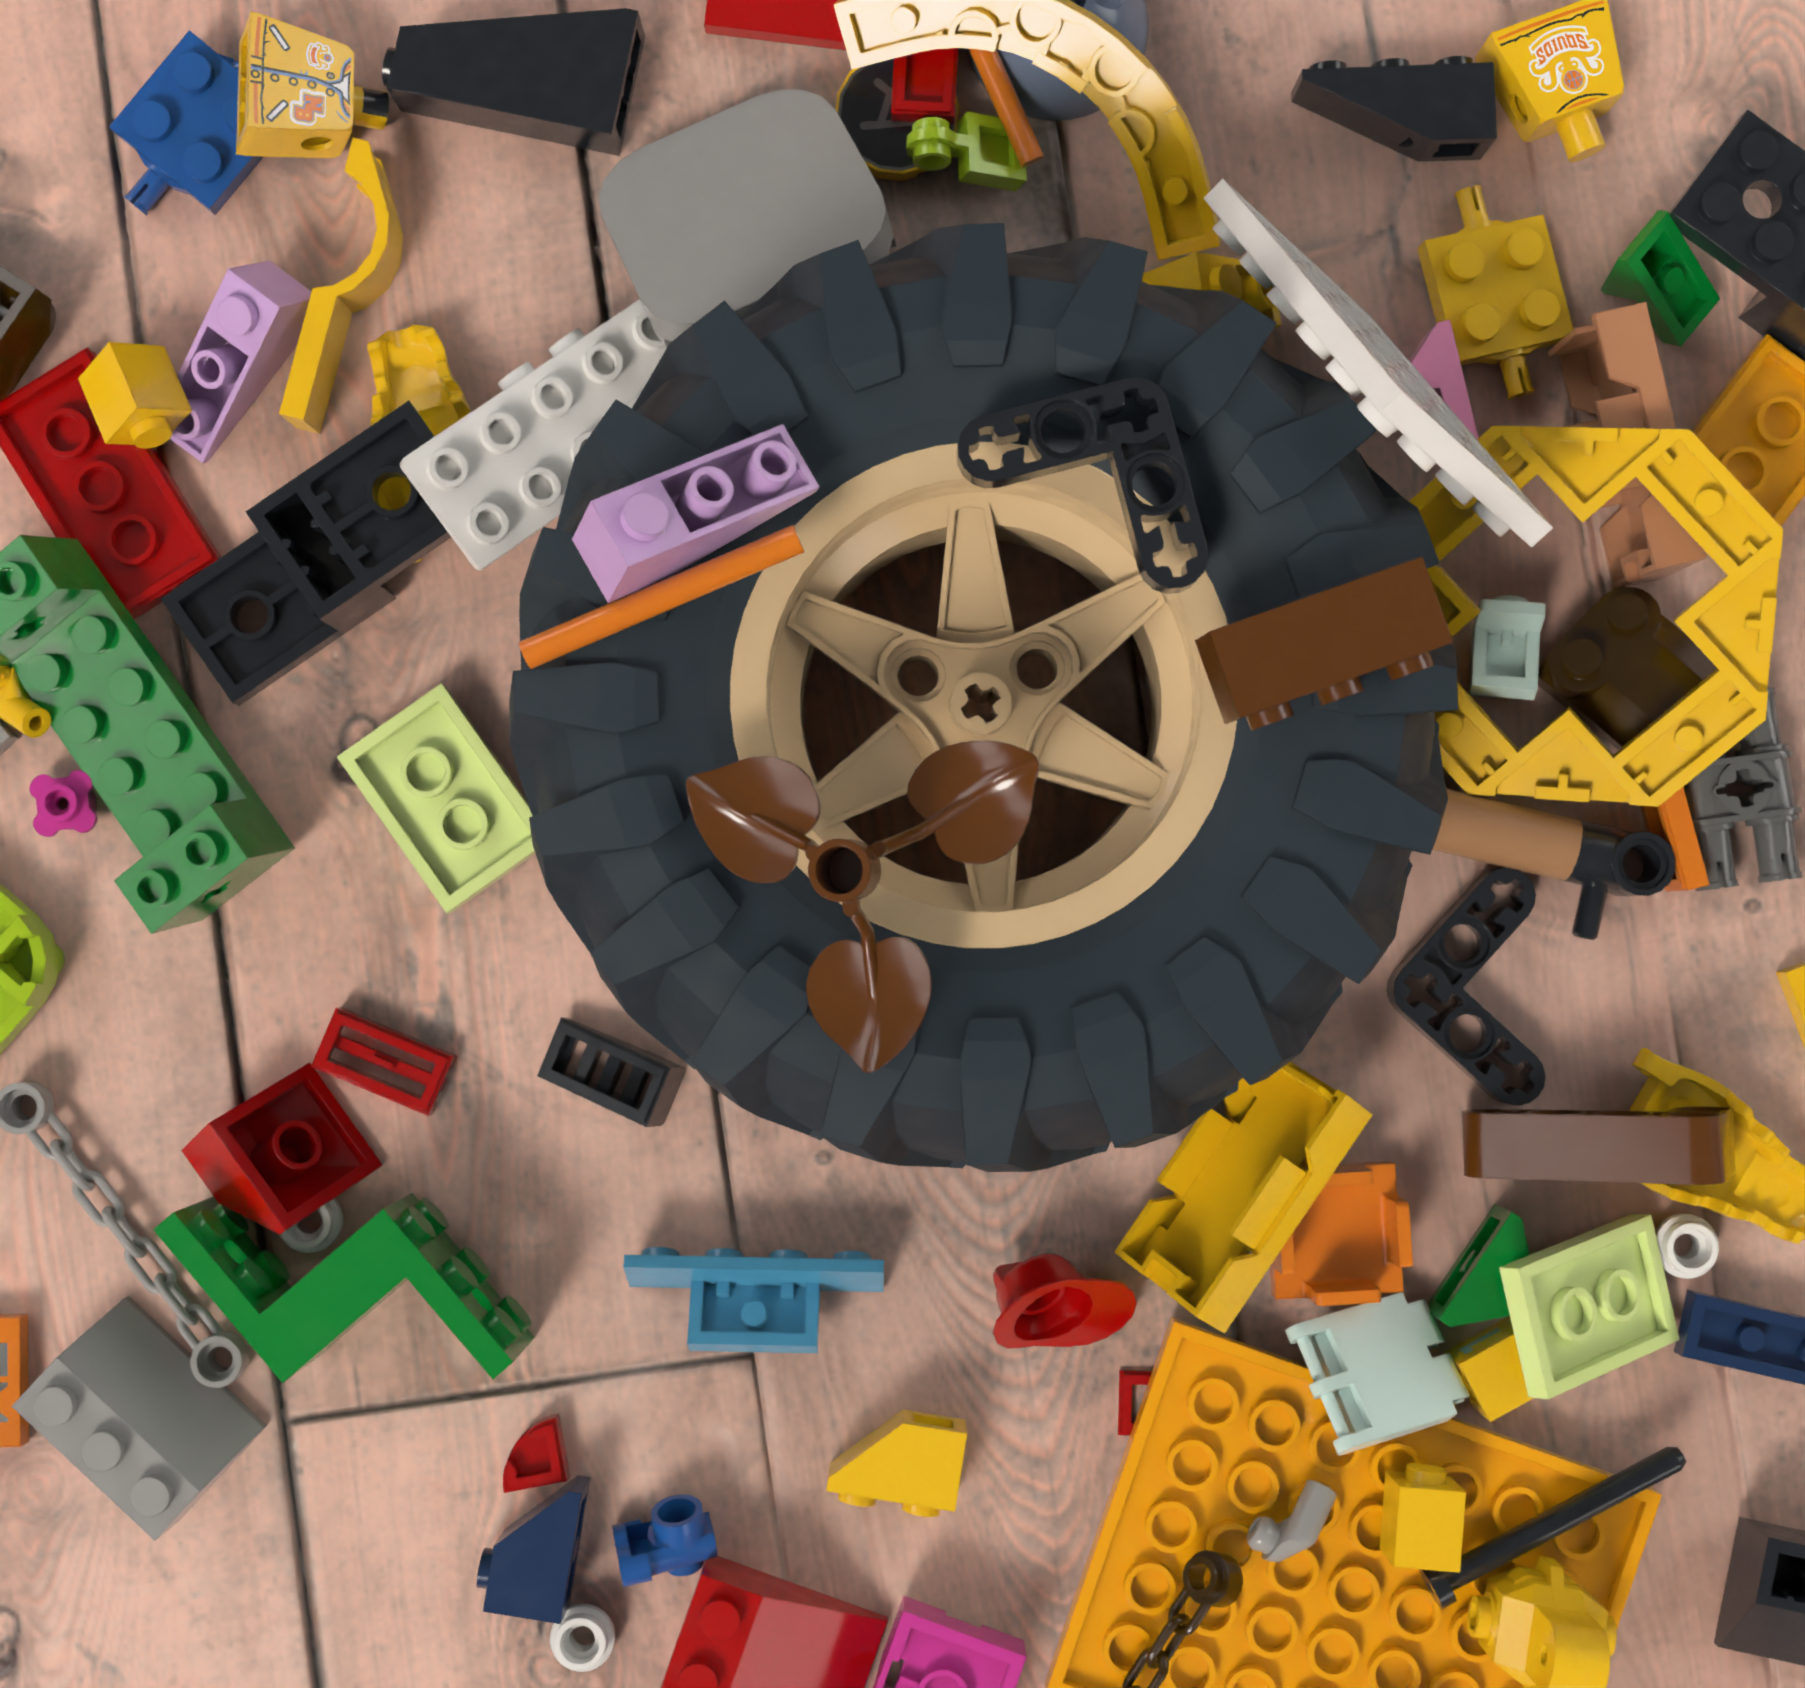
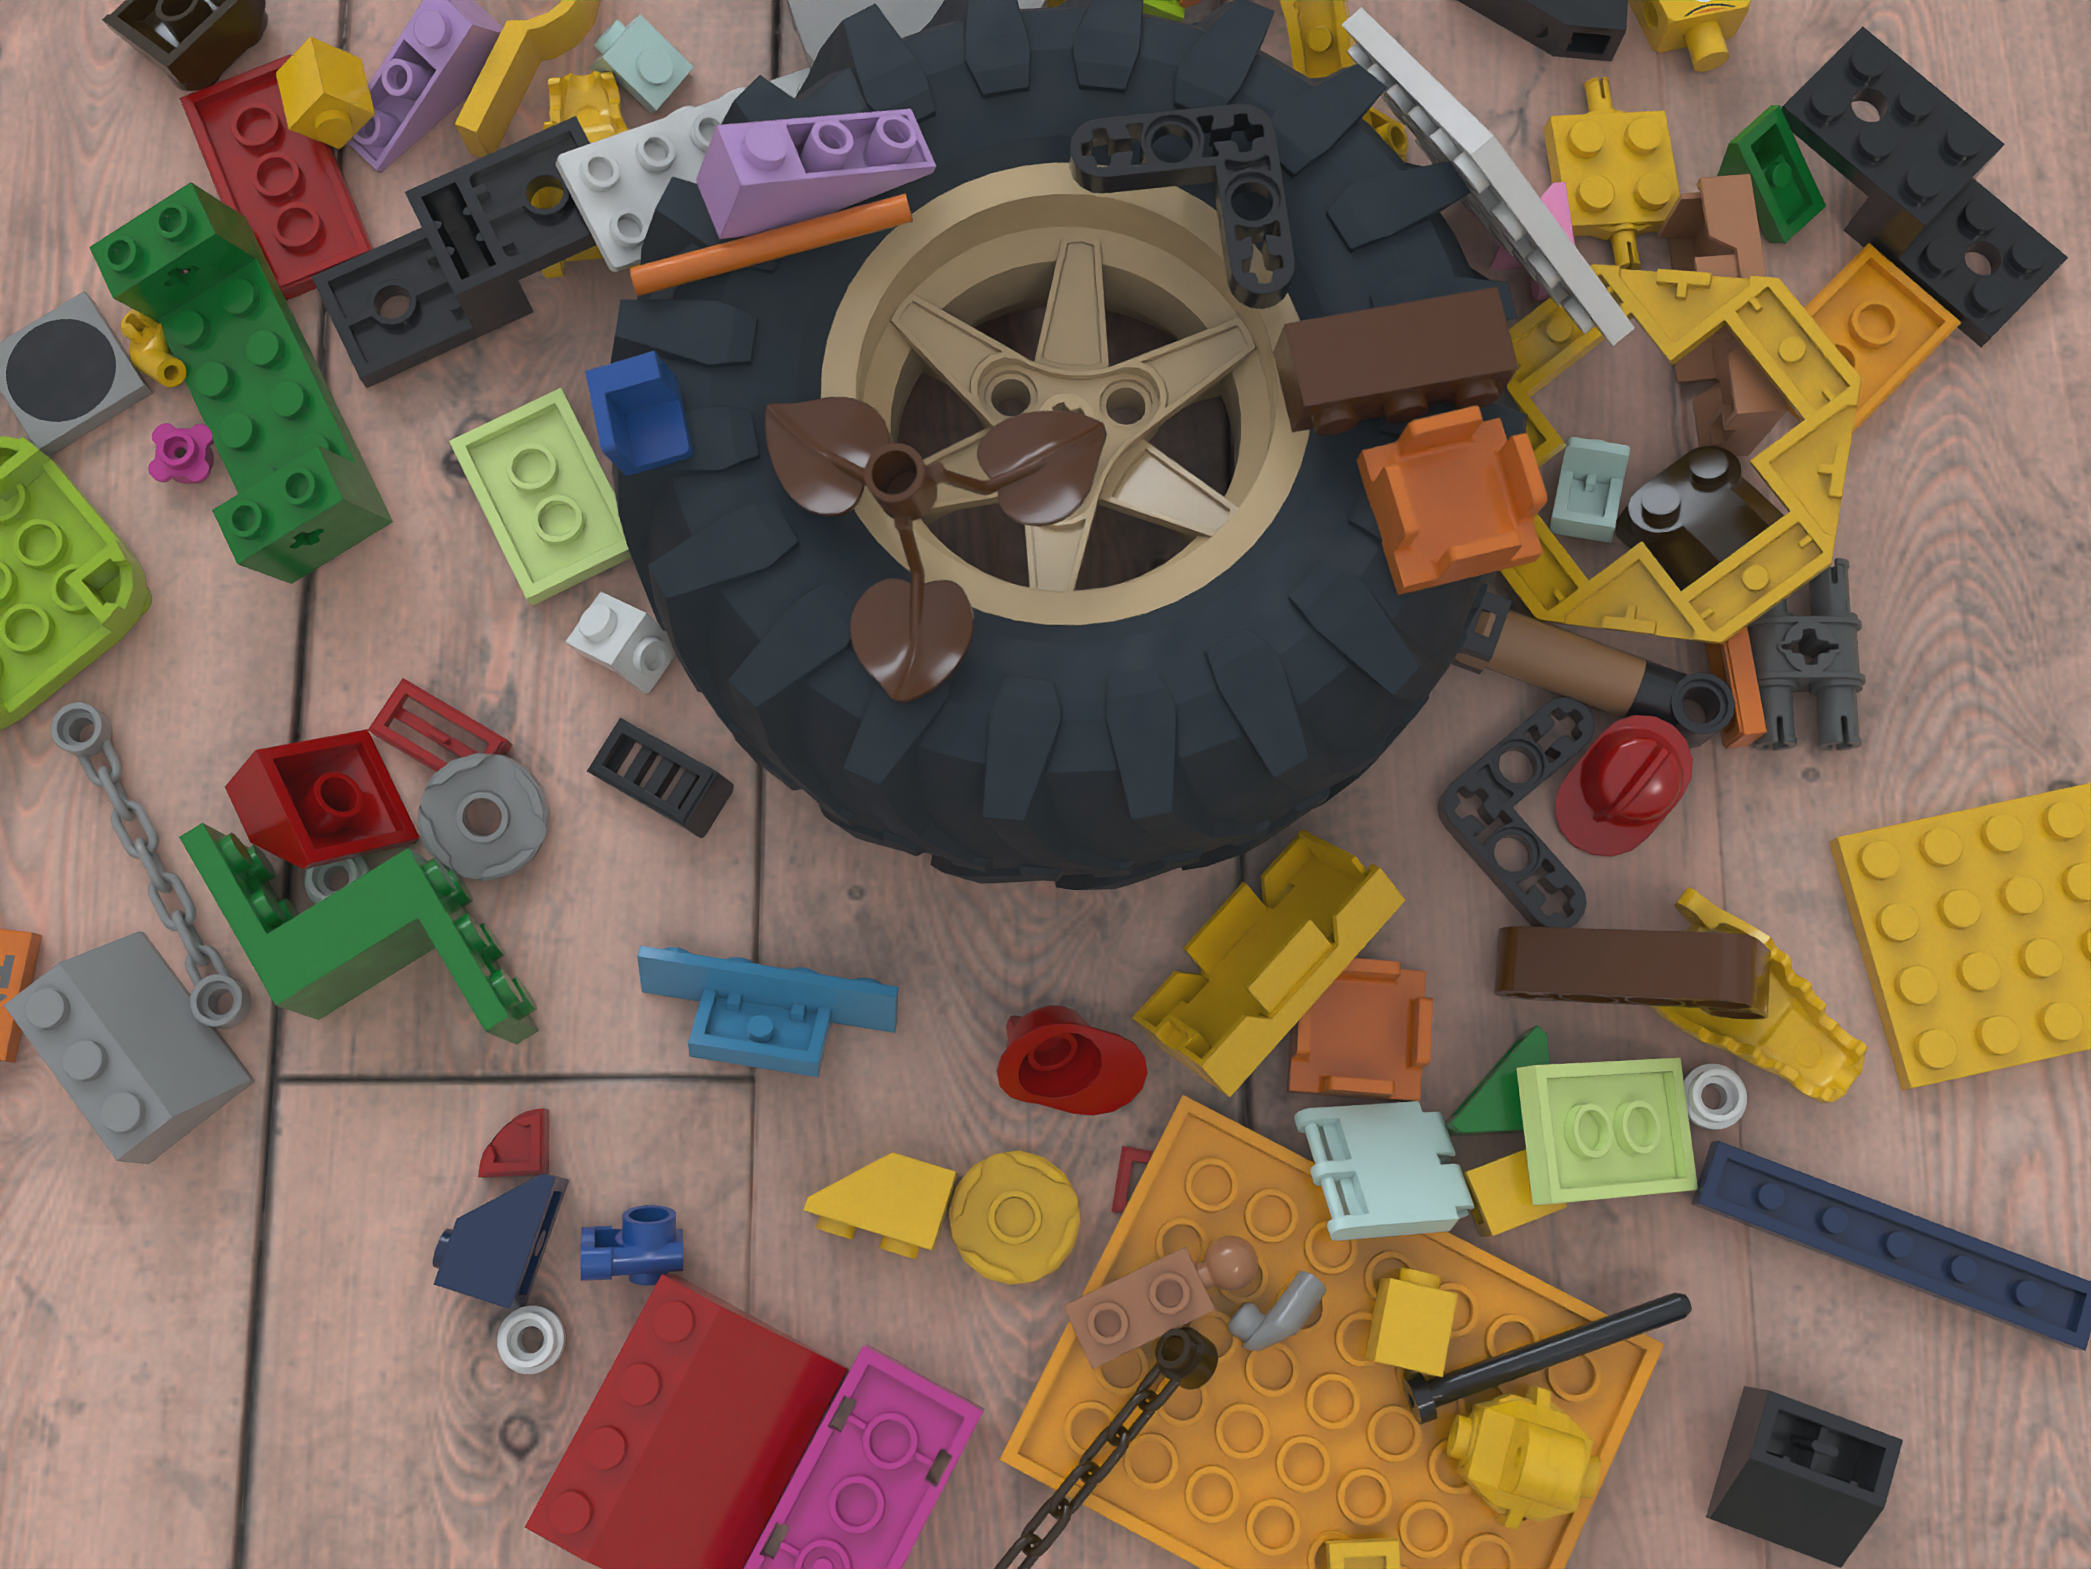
camera: 10 degrees right, 10 degrees down
(453, 1104) = (445, 823): none -> light grey tile
(459, 306) = (641, 61): none -> light aqua bracket
(544, 941) = (623, 641): none -> white bracket
(557, 805) = (639, 413): none -> blue panel
(1026, 1455) = (1014, 1217): none -> yellow tile
(1176, 1525) = (1158, 1298): none -> nougat plate
(1399, 782) = (1454, 499): none -> orange panel
(1571, 951) = (1623, 785): none -> red piece

